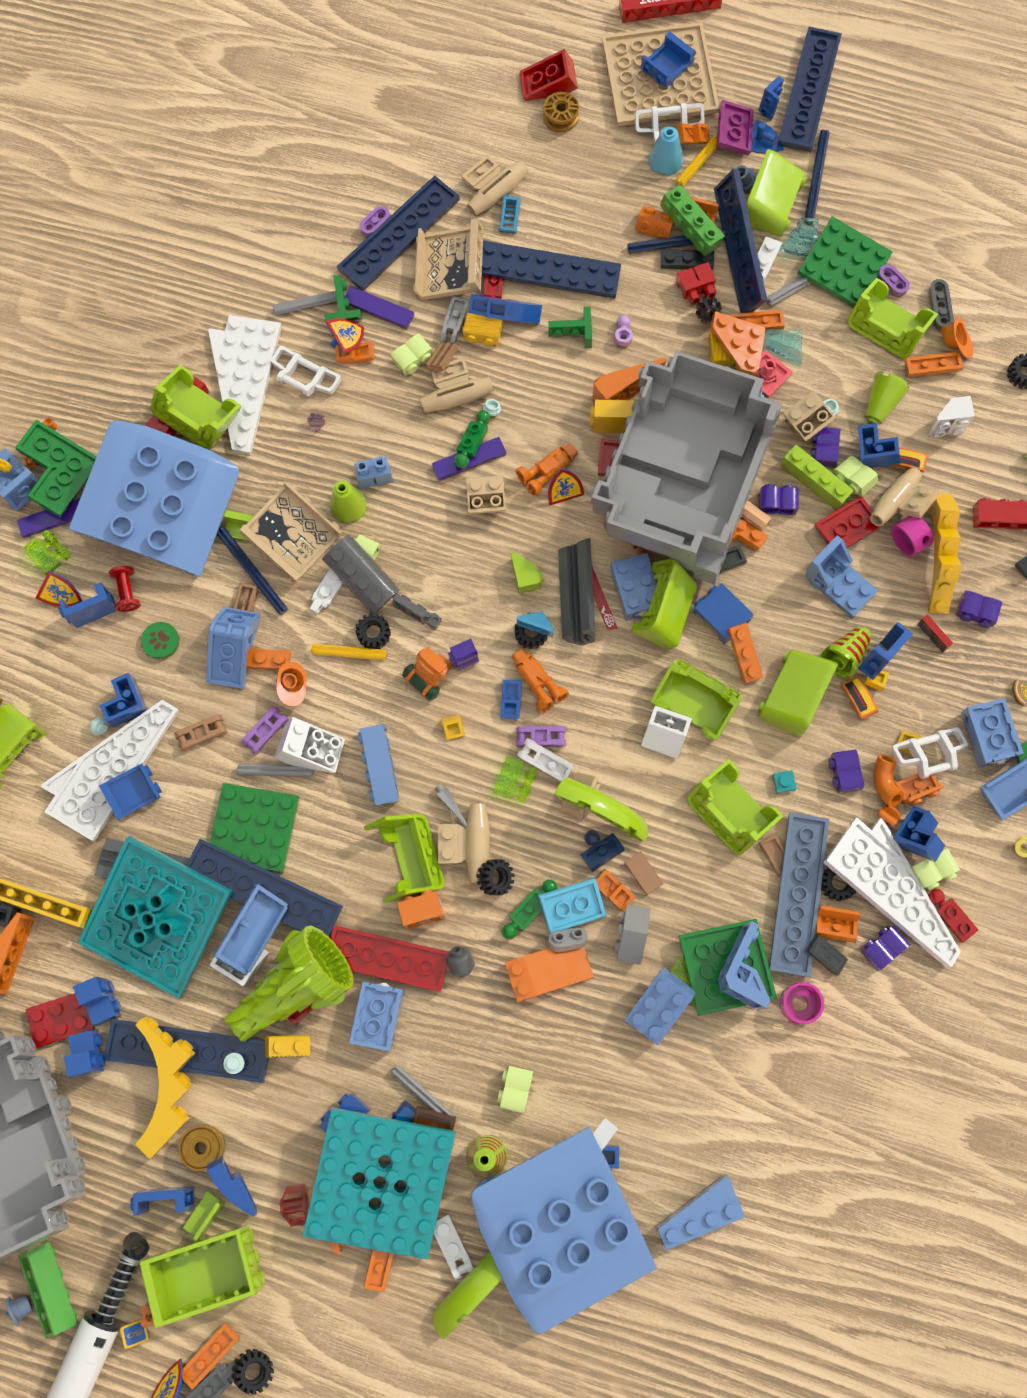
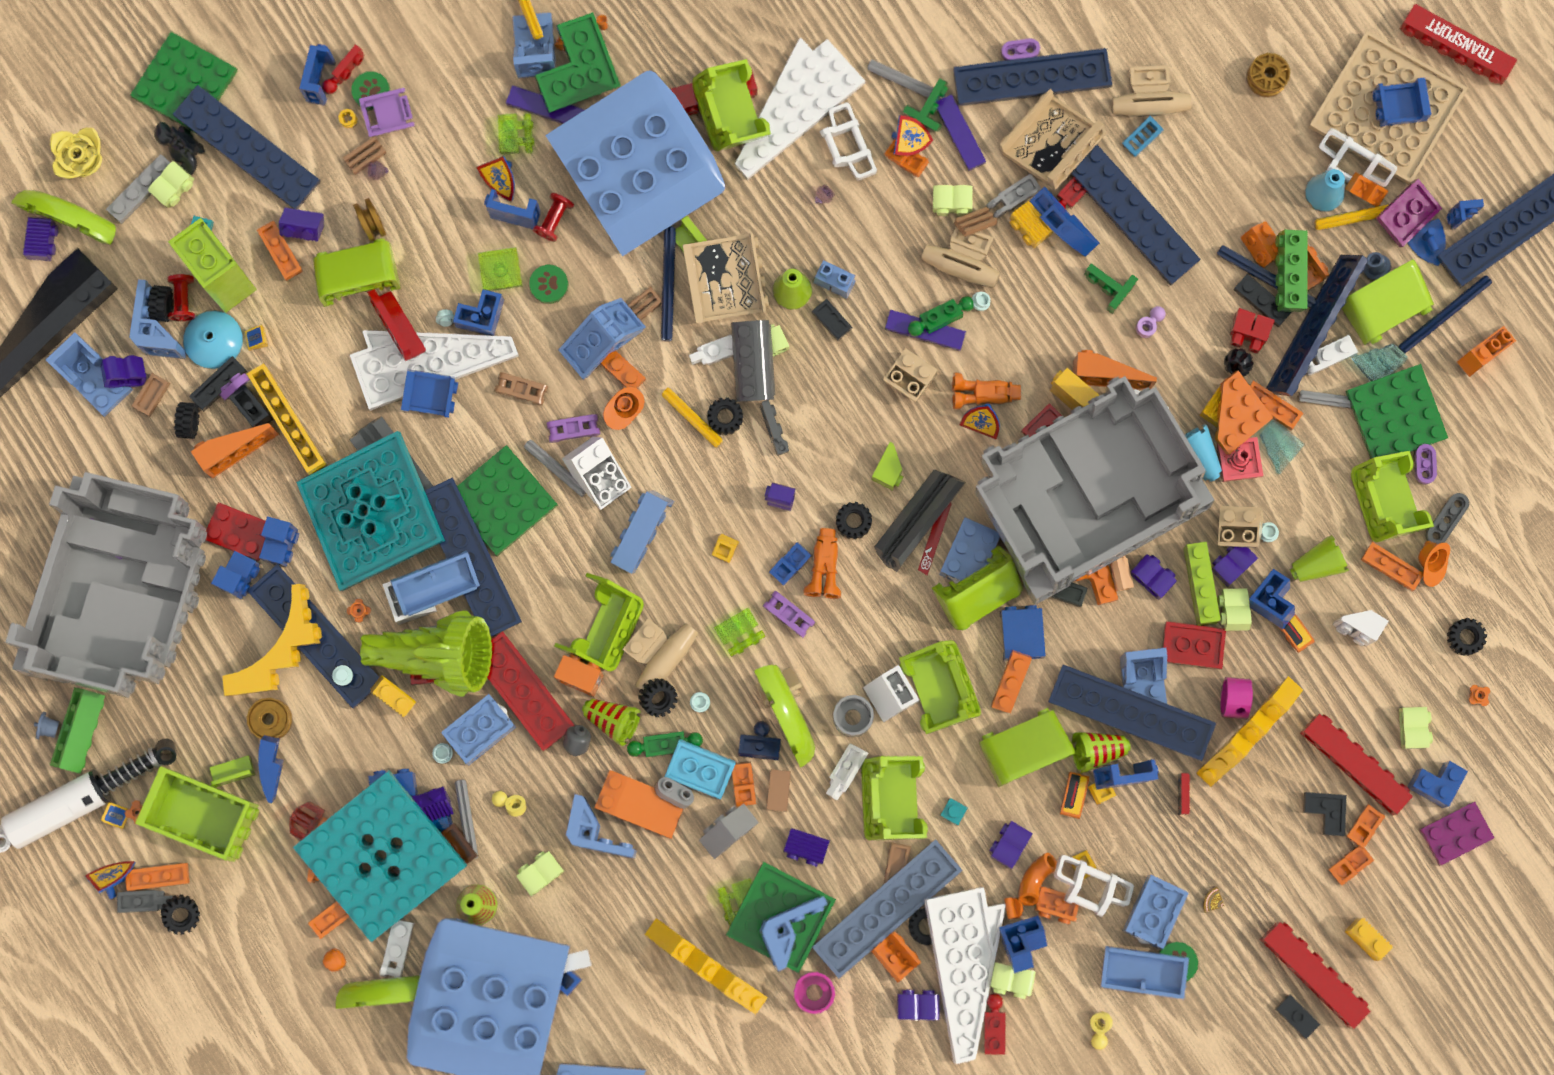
camera: 35 degrees right, 5 degrees up
(63, 759) = (397, 324): none -> red panel
(113, 657) = (500, 269): none -> clear neon green plate
(184, 1198) = (228, 743): blue panel -> none
(202, 1006) = (358, 605): none -> orange plate
(362, 1059) = (442, 753): none -> light aqua plate
(389, 1103) = (434, 803): none -> dark purple brick
(395, 502) = (832, 319): none -> black plate
(409, 1300) = (334, 960): none -> orange piece
(427, 673) = (739, 487): orange piece -> none
(437, 1056) = (500, 799): none -> light yellow plate
(445, 796) = (672, 605): light grey piece -> none
(473, 922) = (613, 719): none -> lime cone
(517, 1017) = (583, 819): none -> medium blue bracket
(529, 855) = (700, 702): none -> light aqua plate
(536, 622) = (861, 517): dark azure slope -> none
(545, 760) = (775, 636): white plate -> none
(549, 76) = (1285, 33): red slope -> none
(660, 1006) = (702, 902): medium blue piece -> none
(661, 763) = (857, 703): none -> light grey piece
(681, 816) = (846, 770): none -> white hinge
(700, 897) = (806, 847): none -> dark purple brick
(702, 1053) = (705, 966): none -> yellow arch
(827, 955) = (866, 973): pearl dark grey tile -> none
(850, 604) = (1132, 712): none -> dark blue plate
(866, 177) = (1486, 351): none -> orange slope
(904, 496) = (1257, 661): tan plate -> none
(979, 609) = (1239, 804): dark purple brick -> none

